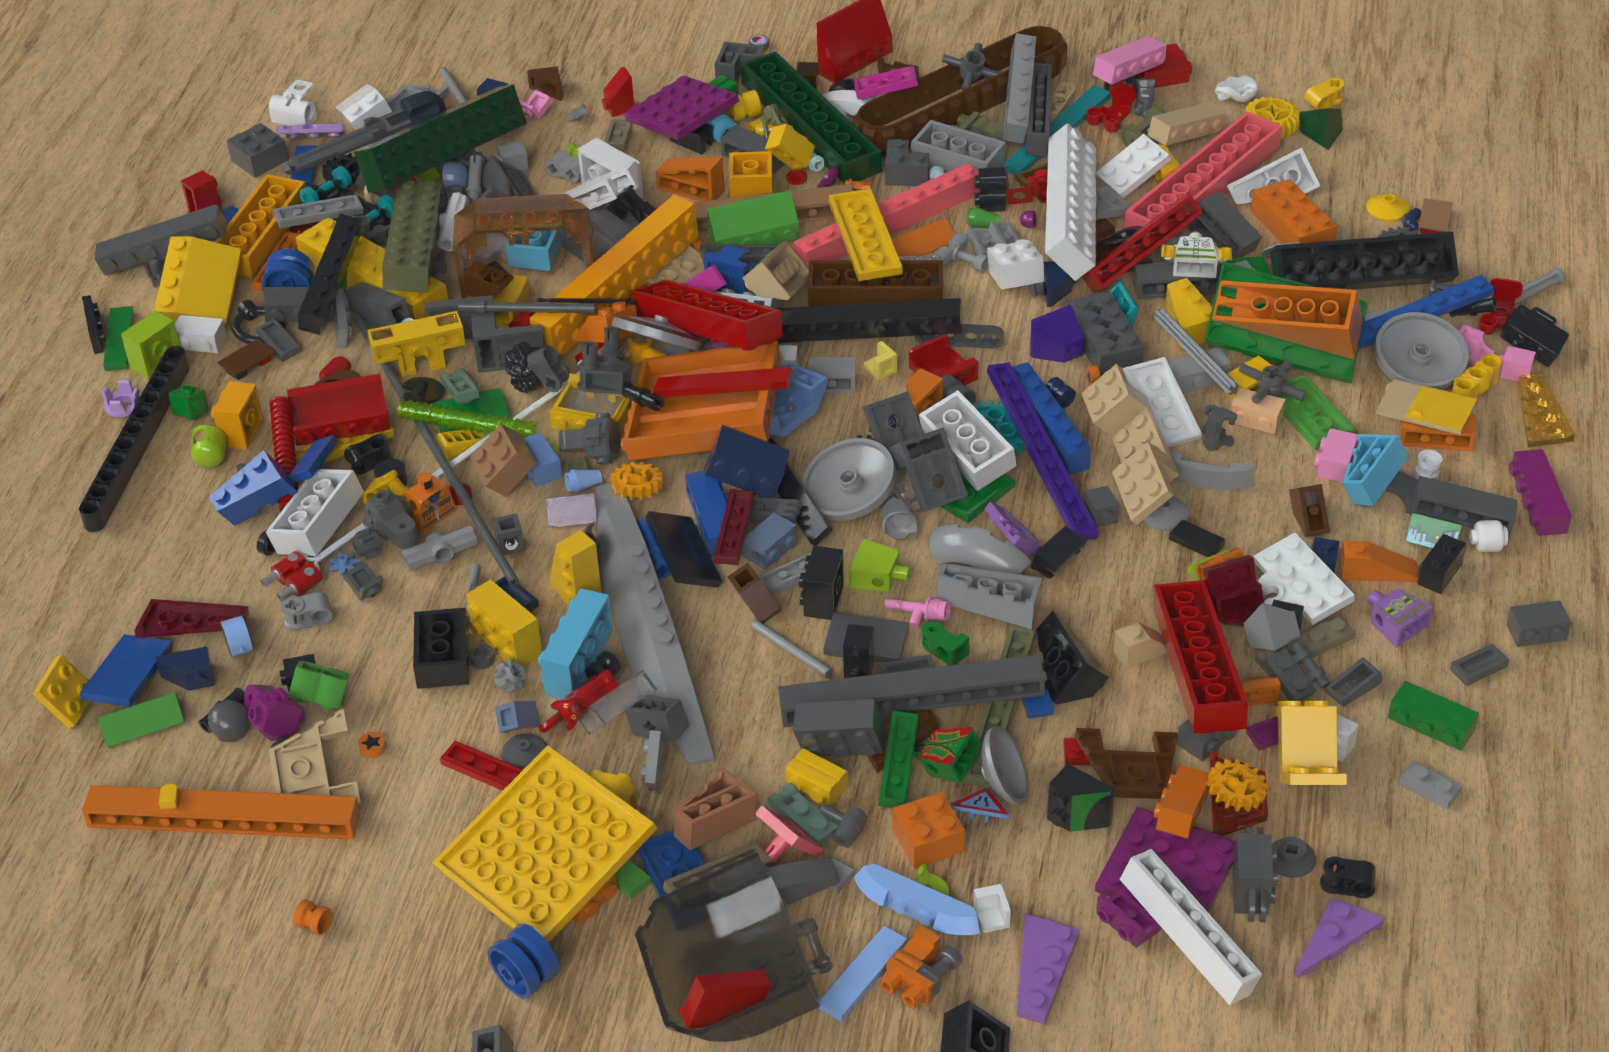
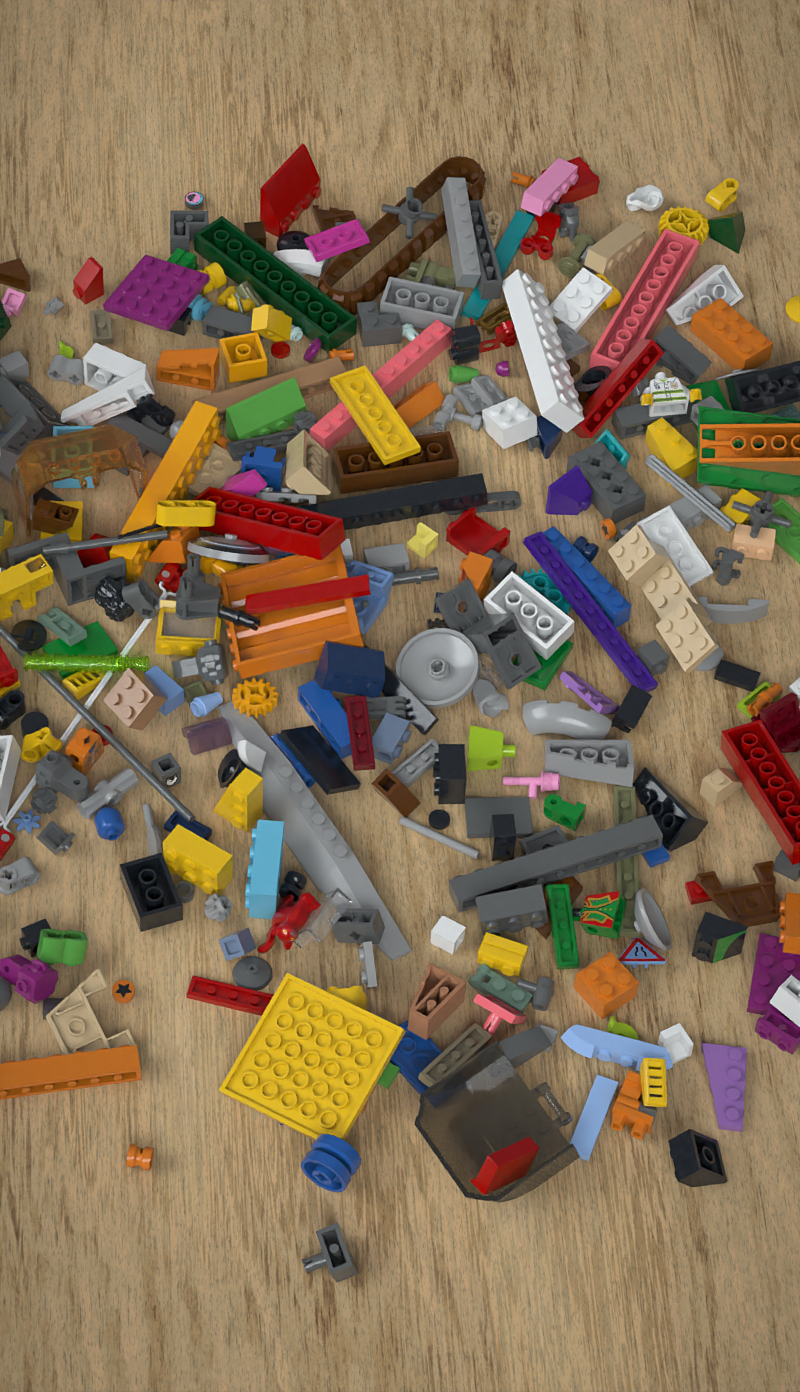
camera: 20 degrees left, 10 degrees up
(427, 576) = (109, 823): none -> blue head
(603, 528) = (251, 755): none -> white brick
(621, 291) = (185, 513): none -> yellow beam
(760, 746) = (447, 935): none -> white panel
(791, 234) = (303, 421): none -> dark grey gear
(798, 631) = (439, 819): none -> black piece
(855, 393) = (415, 576): none -> dark grey pin
(949, 925) = (653, 1068): none -> yellow slope

